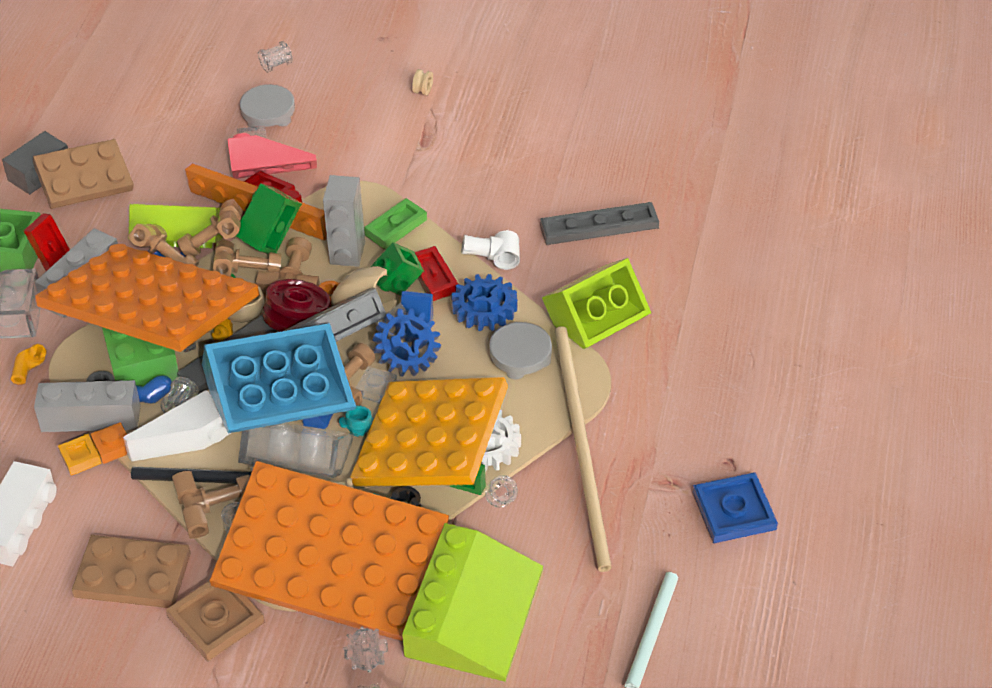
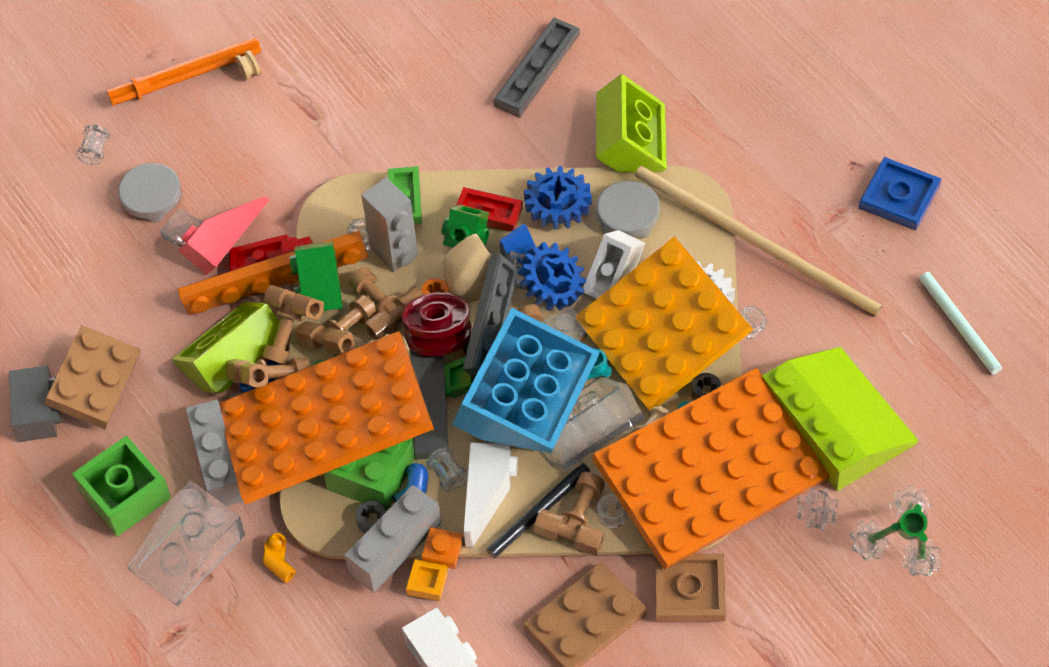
camera: 45 degrees left, 10 degrees up
(46, 240) = (167, 454): red plate -> none
(344, 46) = (147, 84): none -> orange axle
(461, 362) = (614, 260): none -> white slope
(501, 248) = (500, 148): white pin -> none

